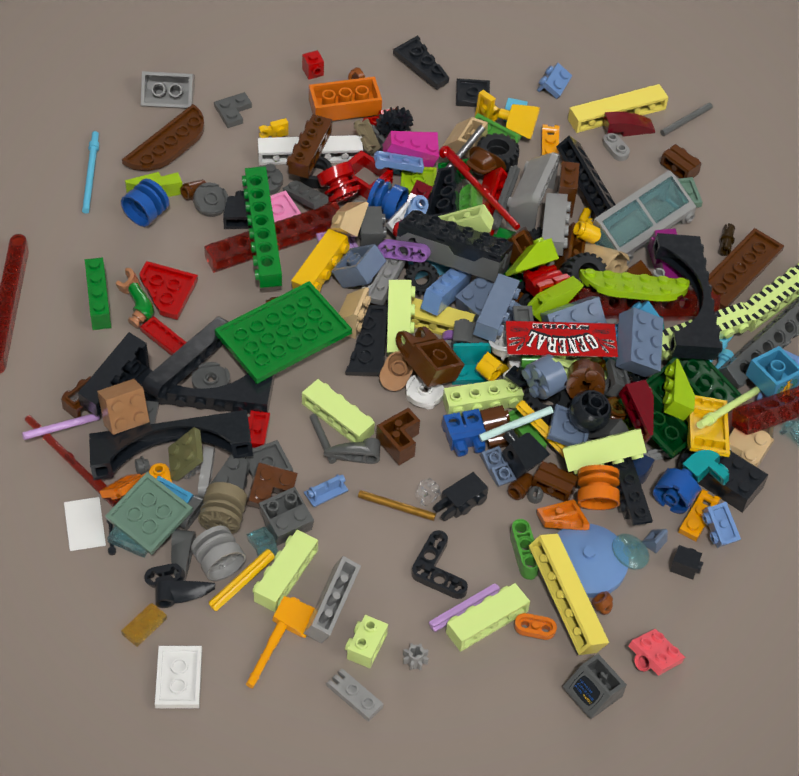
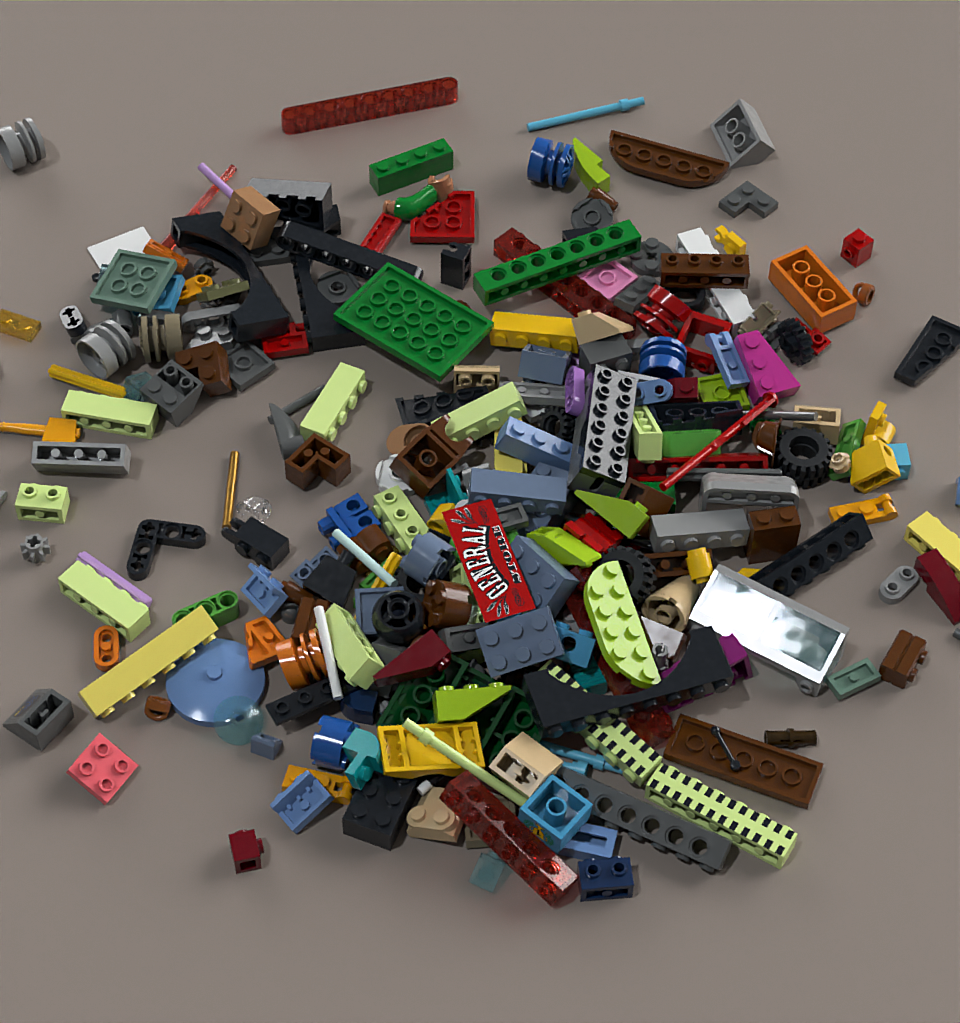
camera: 75 degrees right, 0 degrees up
(172, 592) = (58, 340): black piece -> none
(232, 289) = (456, 265): none -> black hinge
(326, 490) = (225, 422): medium blue hinge -> none
(468, 90) = (910, 415): black tile -> none
(517, 502) = (264, 591): none -> medium blue bracket
(518, 131) = (840, 462): none -> tan plate
(603, 461) = (328, 653): none -> white bar
(687, 562) = (240, 778): black brick -> none
(738, 375) = (525, 764): none -> tan slope
(746, 271) = (734, 764): none -> black hinge
(751, 573) = (246, 850): none -> dark red brick

